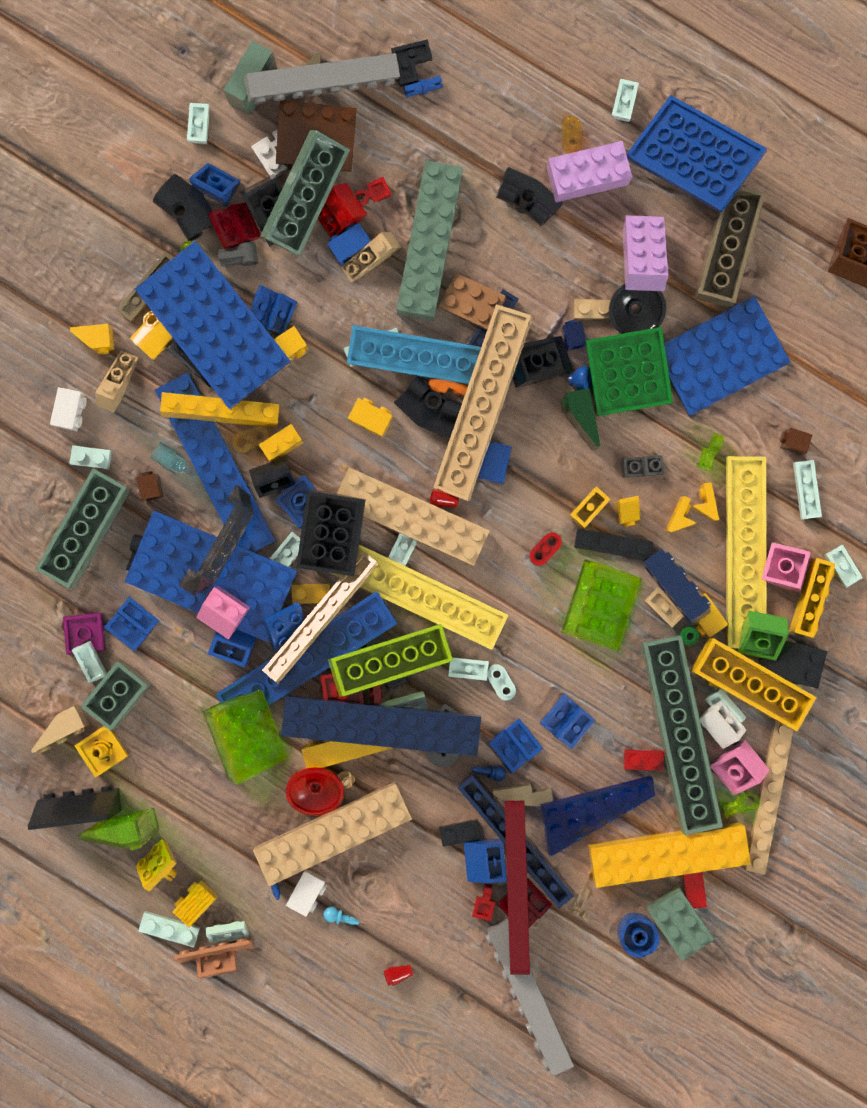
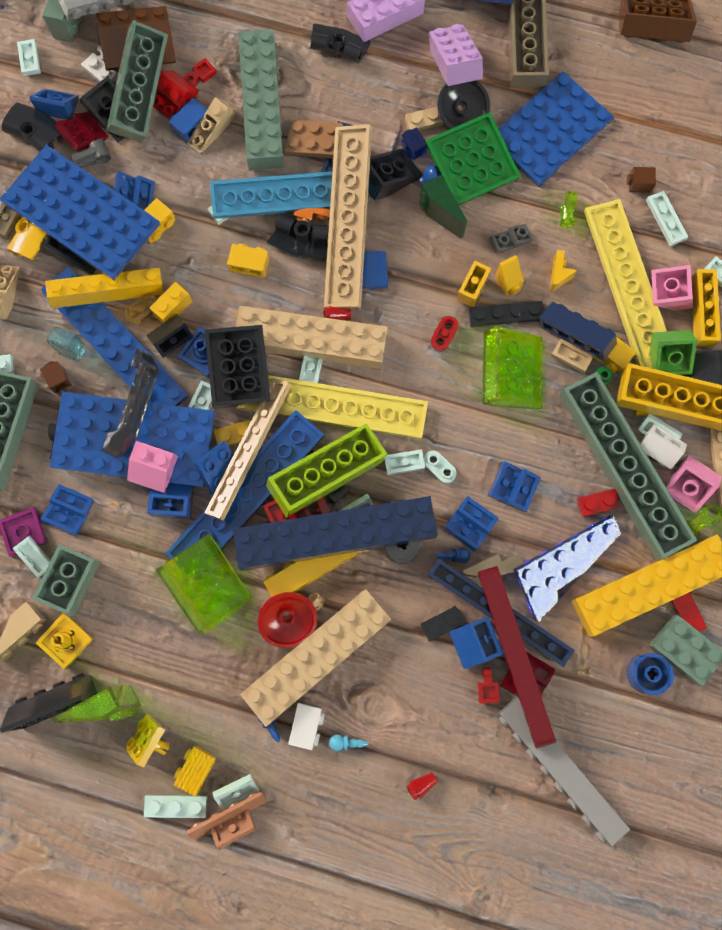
camera: 15 degrees left, 10 degrees down
(708, 508) = (581, 256): yellow slope -> none

